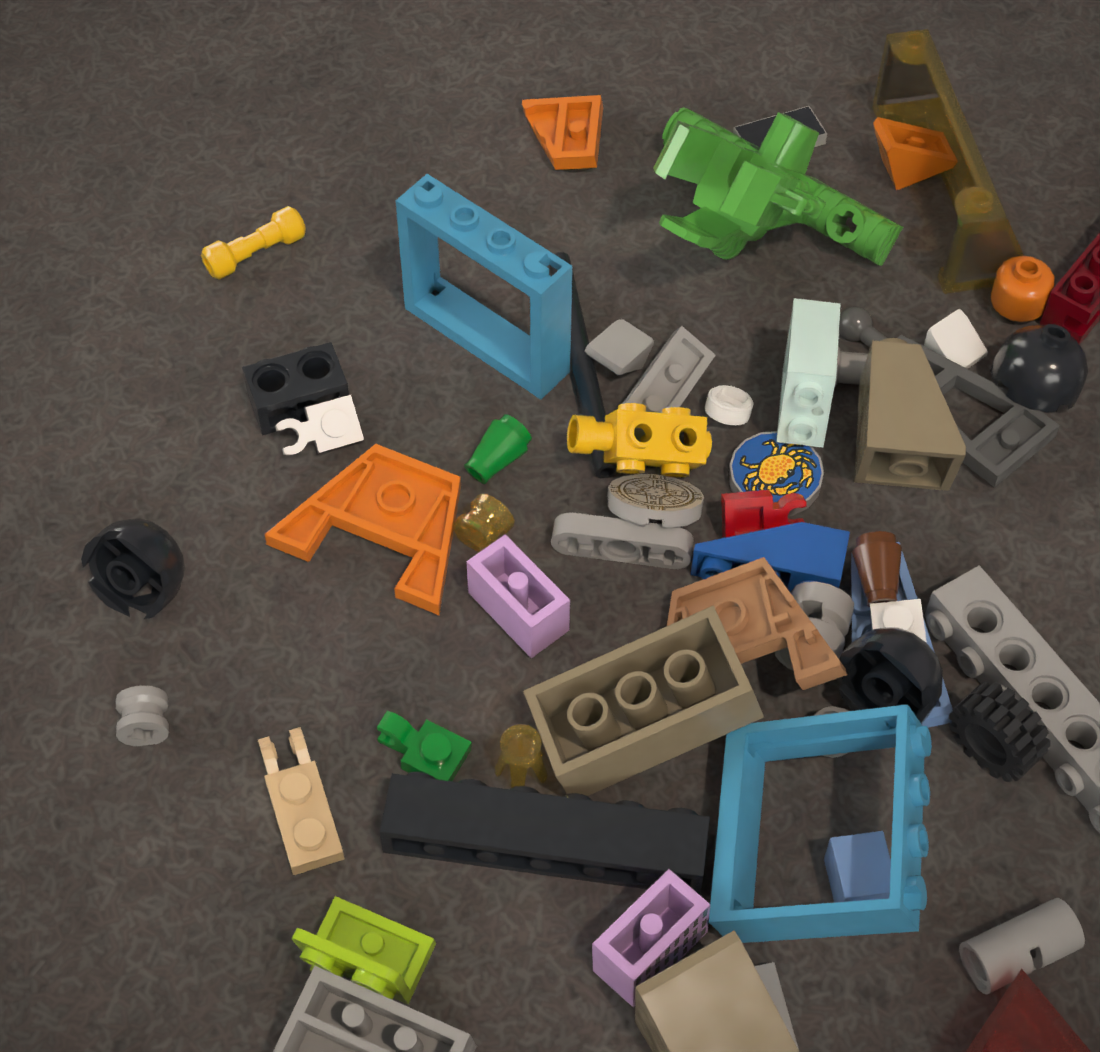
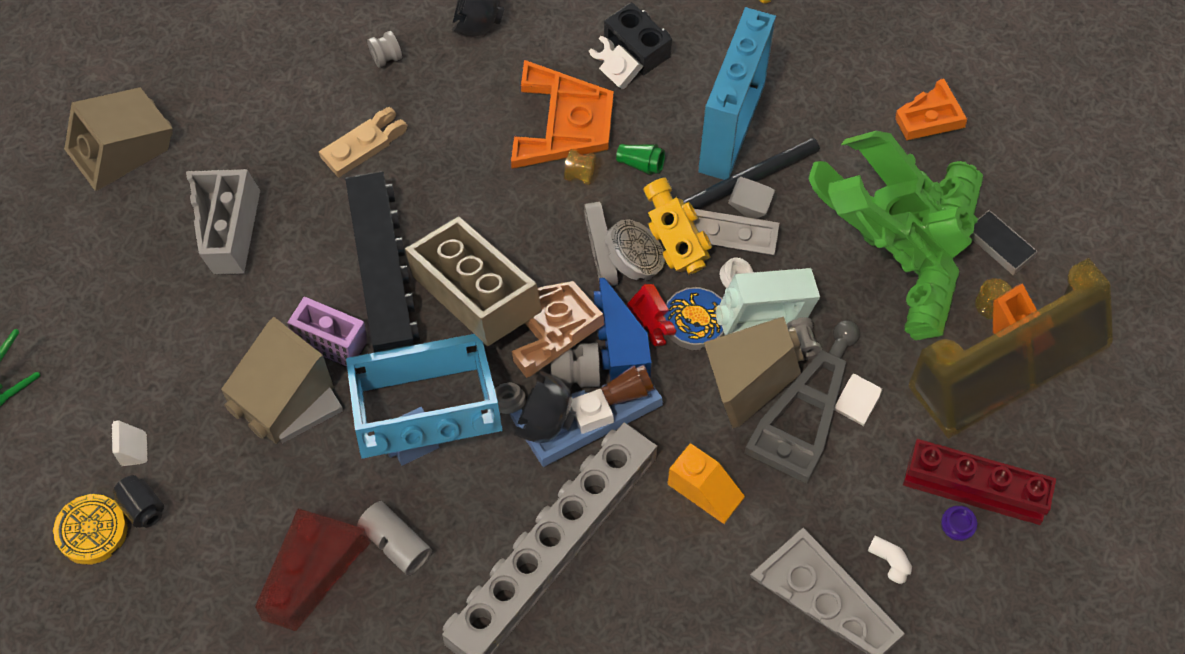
camera: 70 degrees right, 5 degrees up
(367, 950) = (269, 199): lime bracket -> none
(426, 751) = (417, 194): green plate -> none
(518, 596) = (530, 197): lavender brick -> none
(521, 750) = (421, 227): clear yellow piece -> none
(860, 166) = (990, 290): none -> clear yellow wheel
(999, 731) = (533, 486): black tyre -> none
(1022, 288) = (923, 422): orange head -> none
(1029, 542) = (705, 483): none -> light orange slope
(1041, 367) = (851, 454): black cylinder -> none

